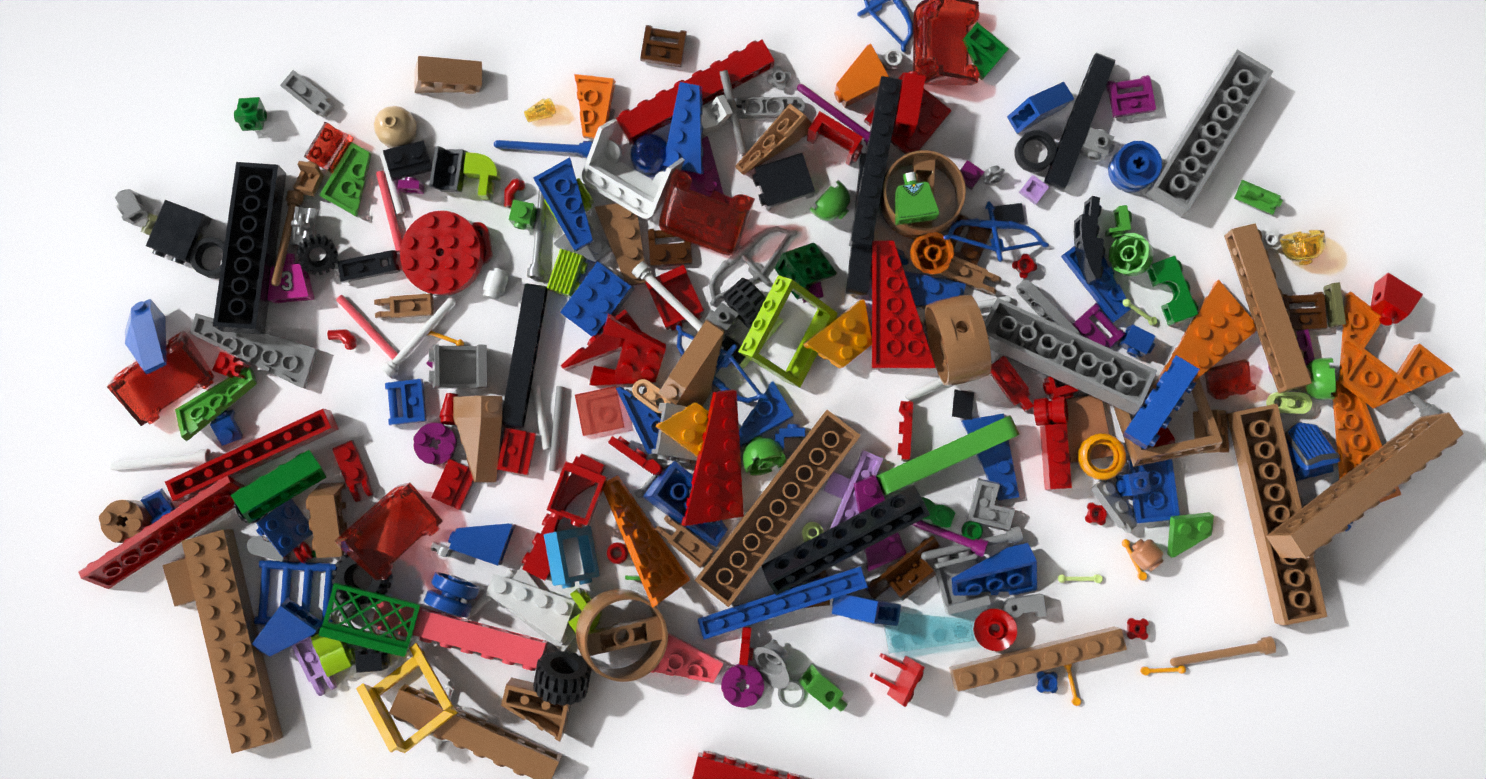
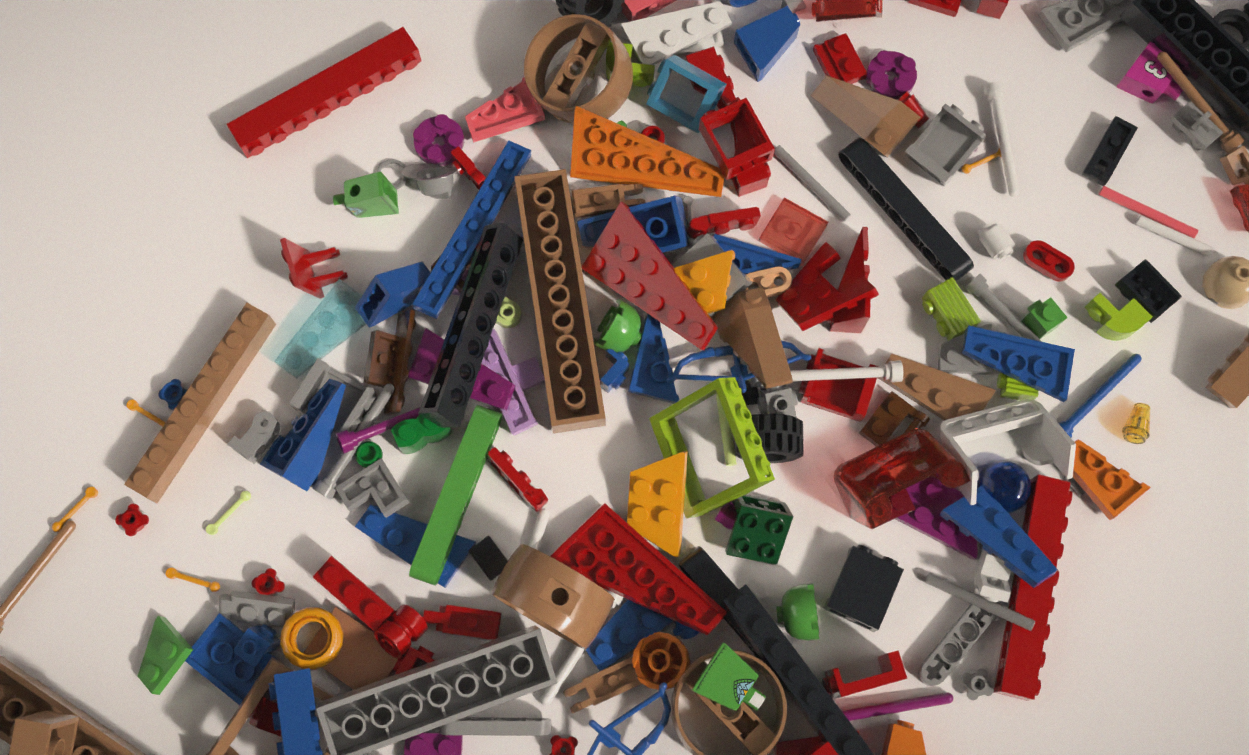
camera: 130 degrees right, 10 degrees down
(317, 242) = (1152, 104): black tyre -> none
(345, 336) = (1058, 81): red arm -> none
(348, 180) = (1211, 200): bright green wing -> none
(367, 327) = (1063, 106): coral bar -> none
(406, 306) = (1041, 152): medium nougat hinge -> none
(407, 160) = (1188, 264): black plate -> none
(411, 185) = (1159, 247): magenta plate -> none
(412, 401) = (949, 87): blue plate -> none
(461, 257) = (1061, 241): red piece -> none
(510, 191) = (1078, 331): red arm -> none
(516, 451) = (821, 132): red plate -> none
(541, 417) = (834, 178): white bar -> none
(596, 297) = (902, 313): blue brick -> none
(663, 52) = (1104, 591): reddish brown plate -> none
(755, 269) = (801, 485): light grey piece -> none
(783, 133) = (914, 621): medium nougat wedge -> none
(968, 251) = (636, 726): reddish brown plate -> none
(993, 639) = (261, 381): red dish -> none
(1147, 554) = (183, 593): nougat head -> none

